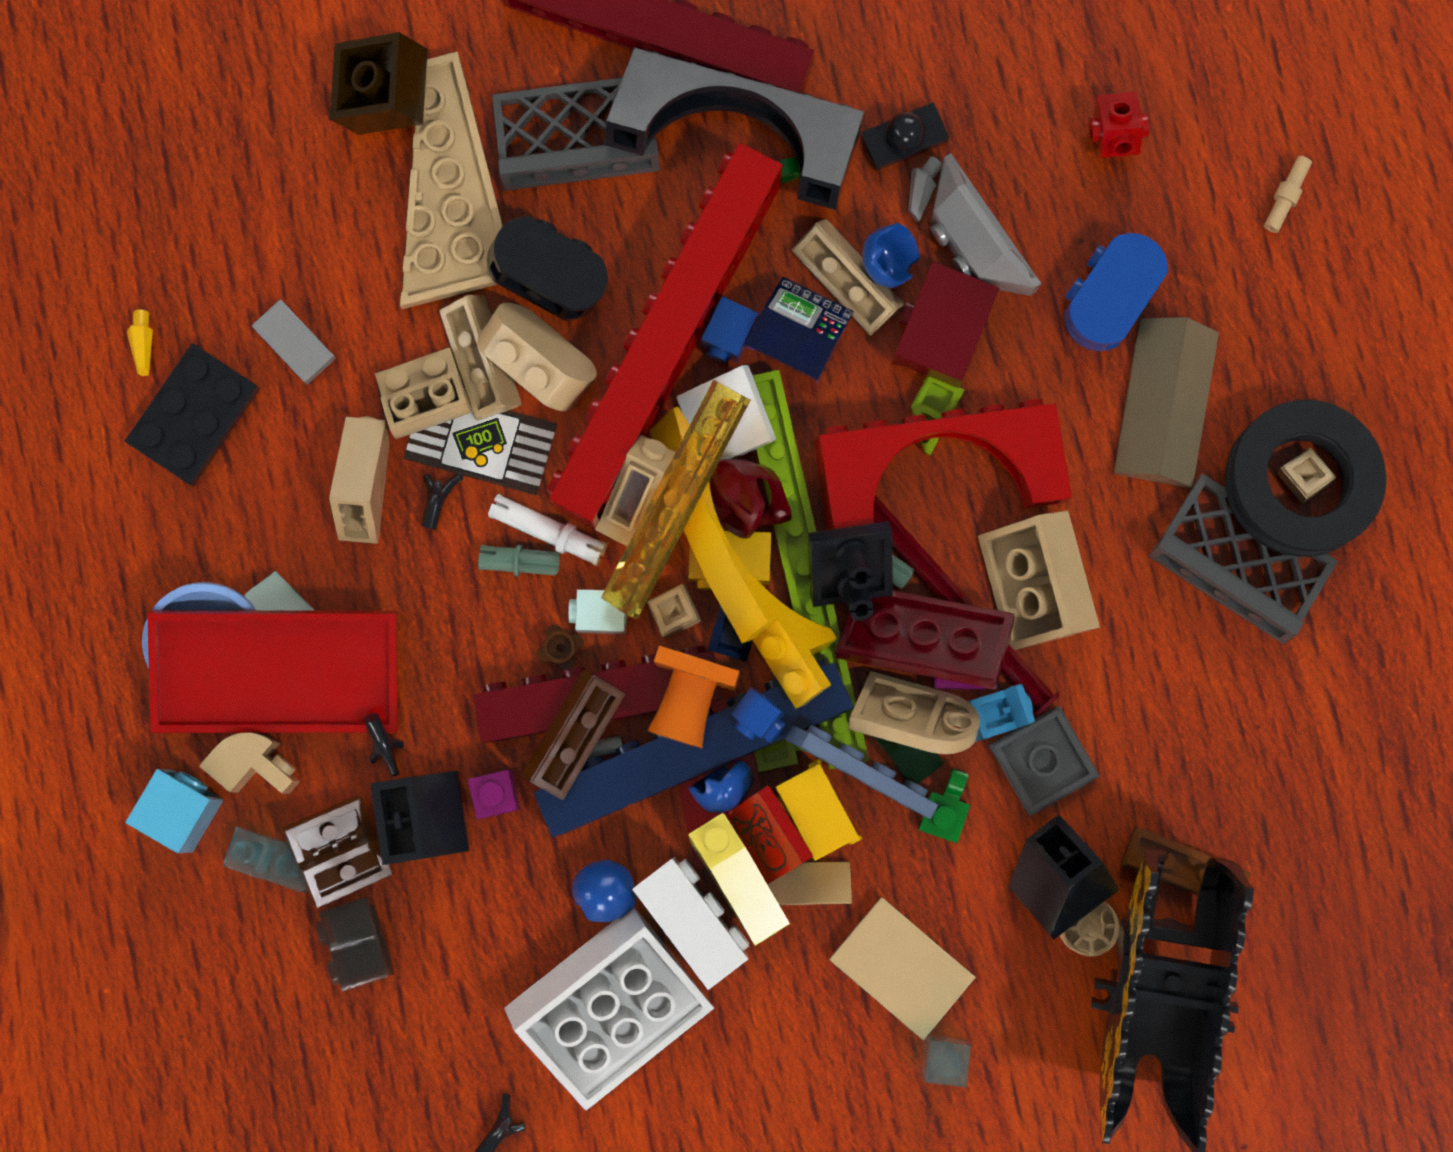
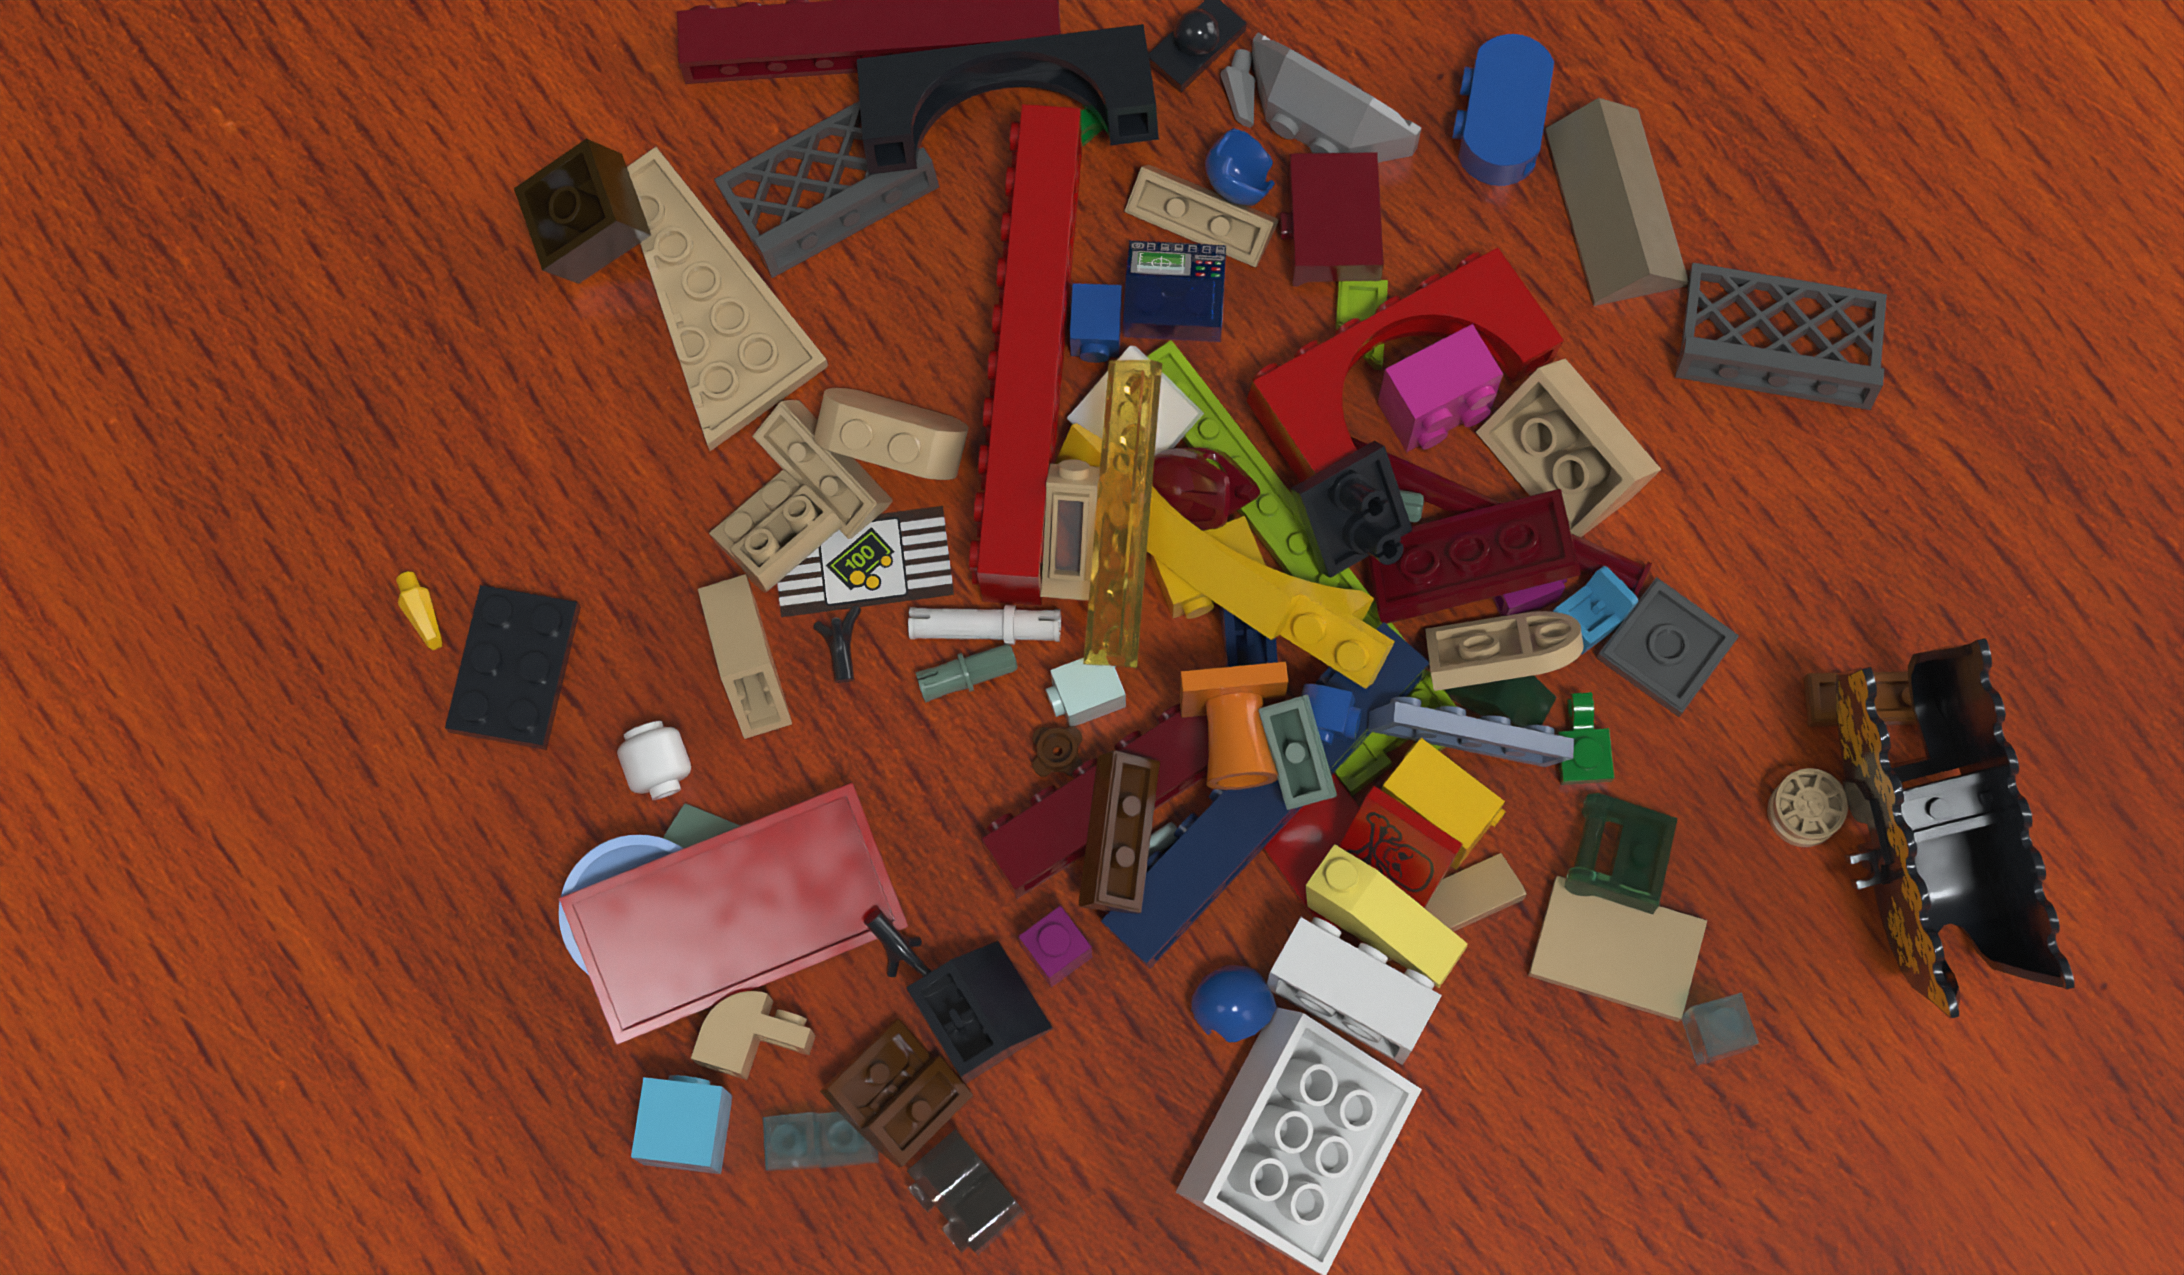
camera: 25 degrees left, 10 degrees down
(263, 531) = (654, 760): none -> white head
(293, 342) = (599, 537): light grey tile -> none
(547, 268) = (860, 334): black brick -> none
(674, 611) = (1170, 653): tan tile -> none
(721, 737) = (1297, 752): none -> sand green slope
(723, 788) = (1320, 825): blue hair -> none
(945, 911) = (1638, 856): none -> clear green plate
(960, 497) = (1440, 389): none -> dark pink brick
(1060, 877) = (1751, 759): black slope -> none
(1306, 475) = (1807, 218): tan tile -> none
(1344, 440) = (1830, 163): black tyre -> none

